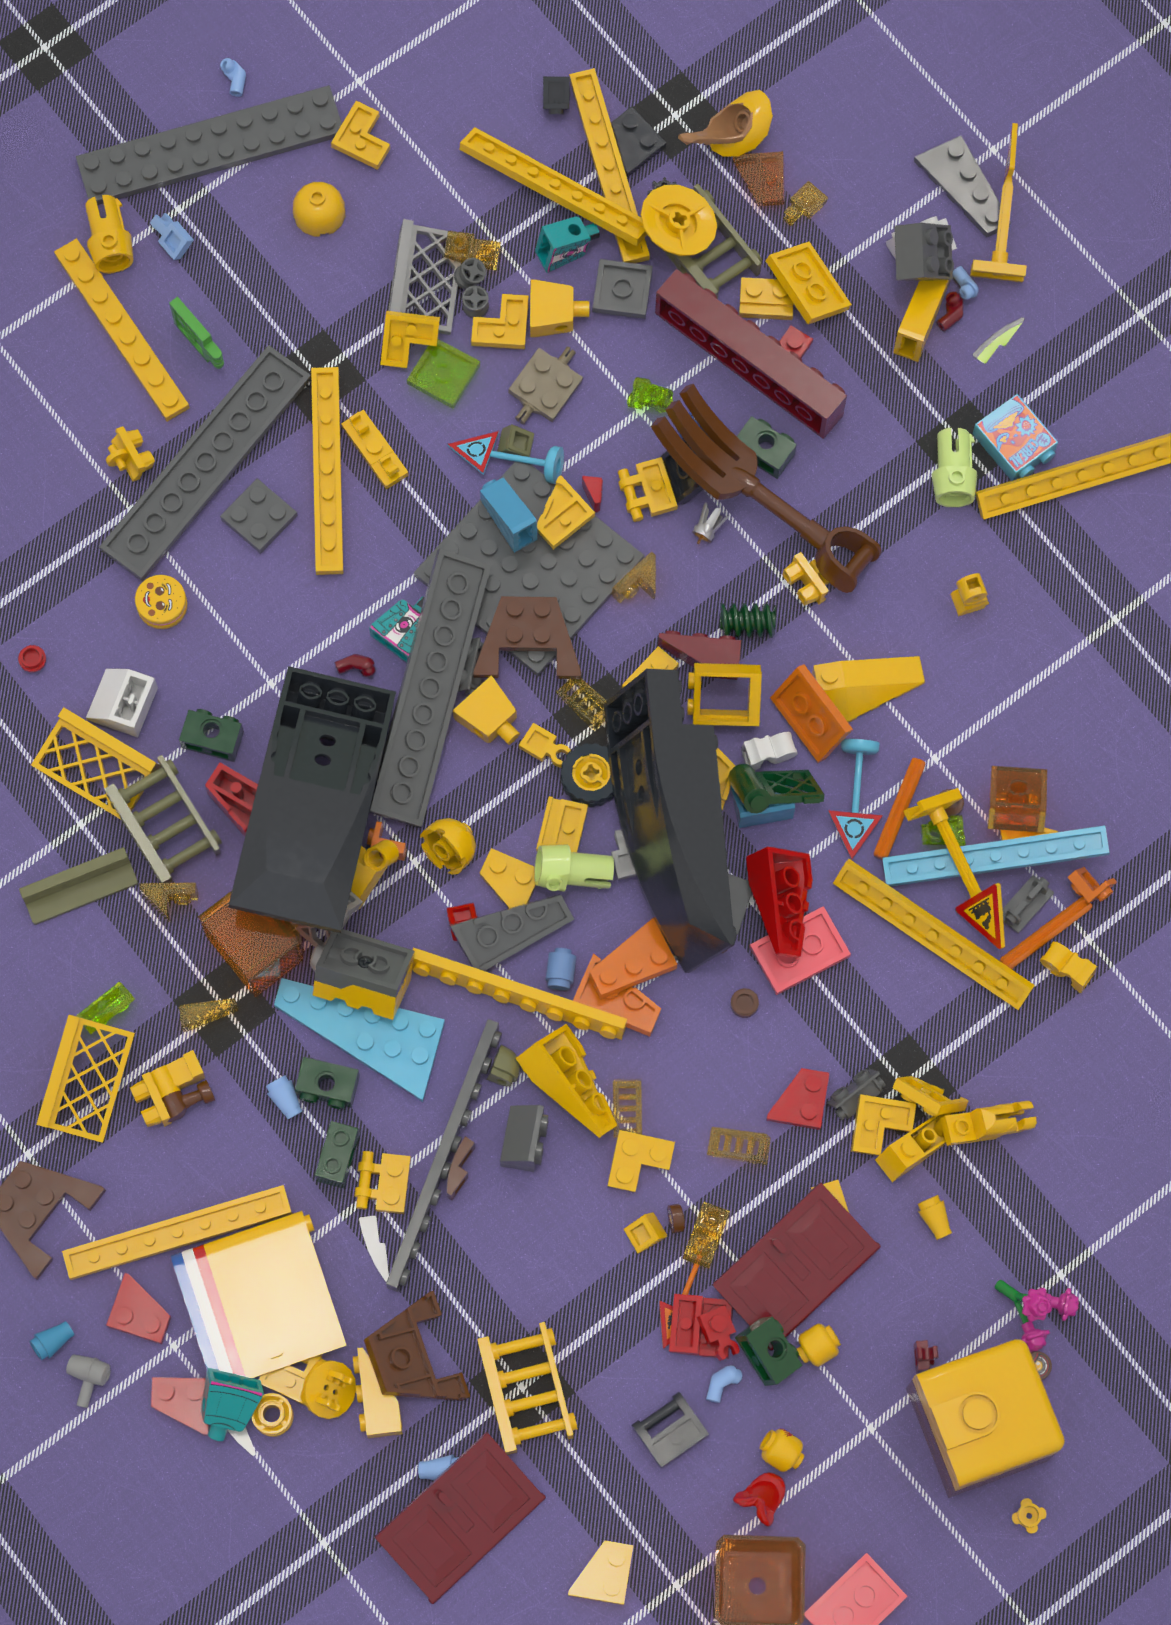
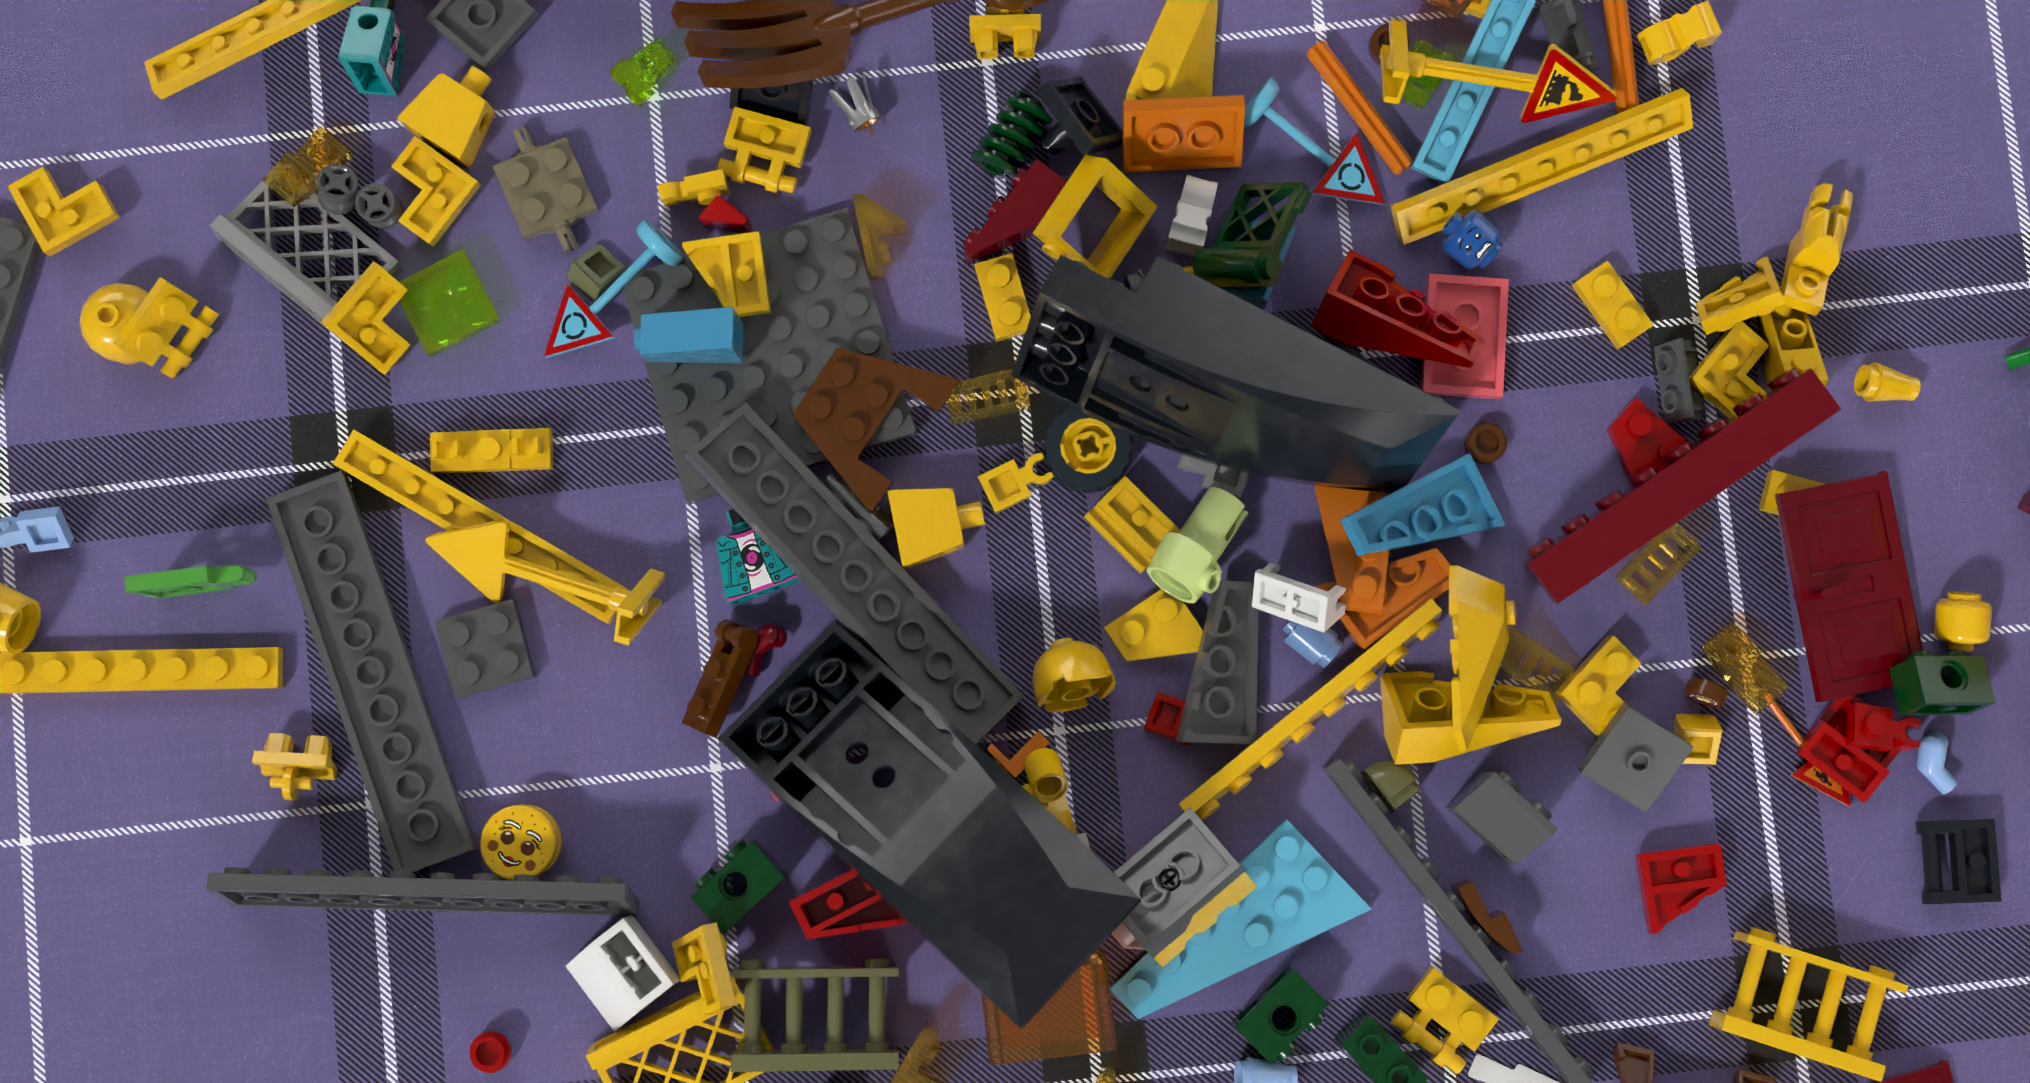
camera: 55 degrees left, 10 degrees up
(100, 567) = (439, 894): none -> dark grey plate
(153, 739) = (702, 957): none -> yellow plate
(309, 480) = (483, 559): none -> yellow piece
(325, 651) = (721, 677): none -> reddish brown plate
(330, 226) = (157, 322): none -> yellow plate
(552, 1269) = (1677, 880): none -> red wing
(575, 942) = (1296, 600): none -> white hinge
(600, 466) = (696, 188): none -> yellow plate
(609, 1197) = (1635, 757): none -> dark grey plate
(620, 1056) = (1481, 637): none -> yellow wedge
(682, 989) = (1429, 509): none -> dark azure wing
(782, 1113) = (1682, 484): none -> dark red brick
(783, 648) = (1079, 118): none -> black tile
(860, 918) = (1471, 239): none -> blue head
(877, 1027) = (1612, 305): none -> yellow plate

